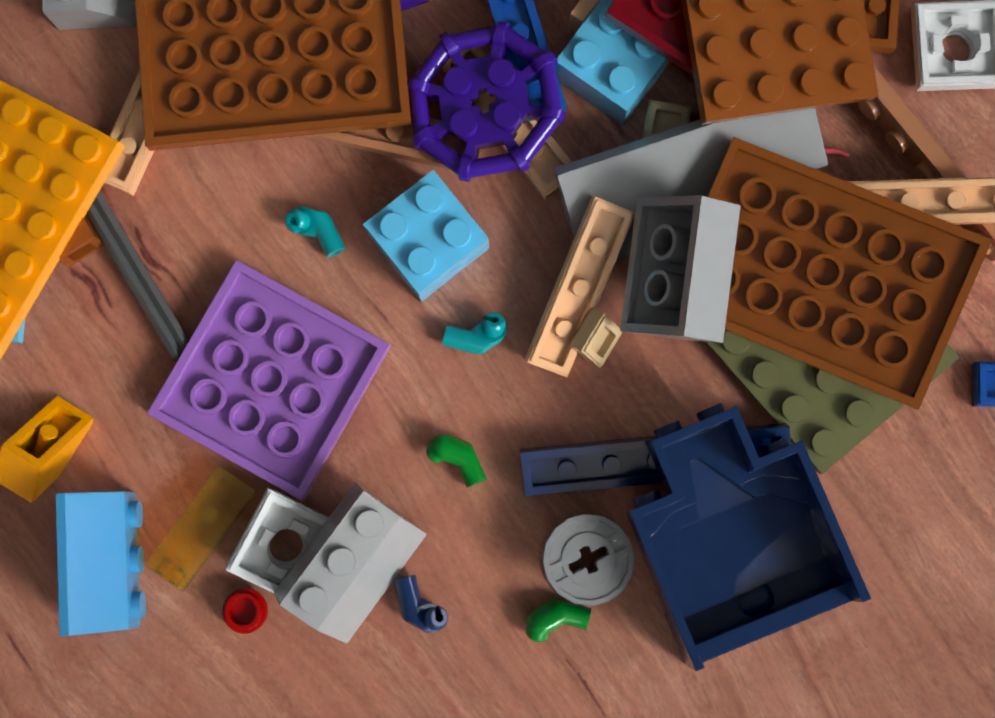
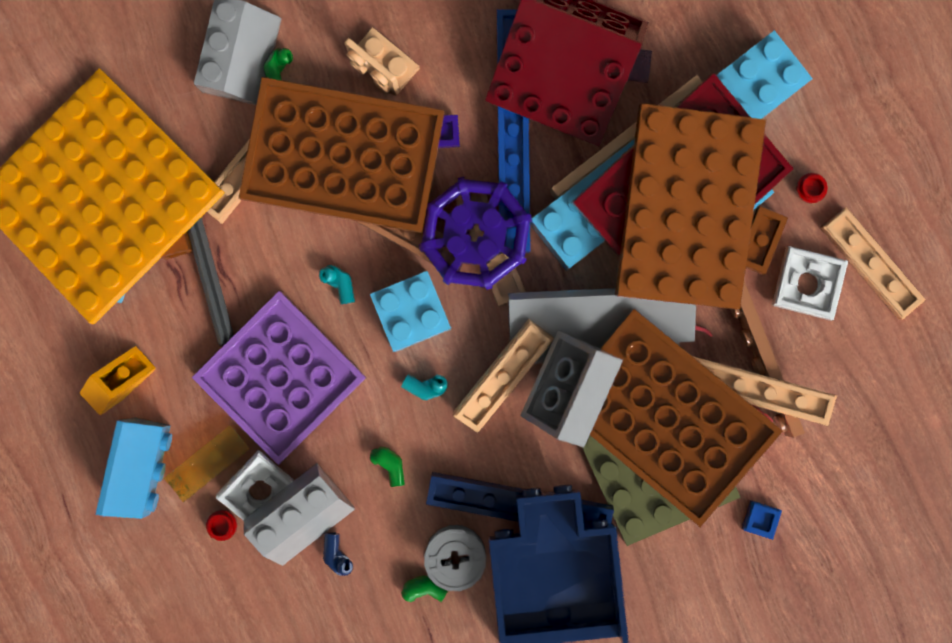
camera: 10 degrees right, 5 degrees up
(596, 338) = (504, 413): tan tile -> none
(664, 116) = (594, 277): tan tile -> none

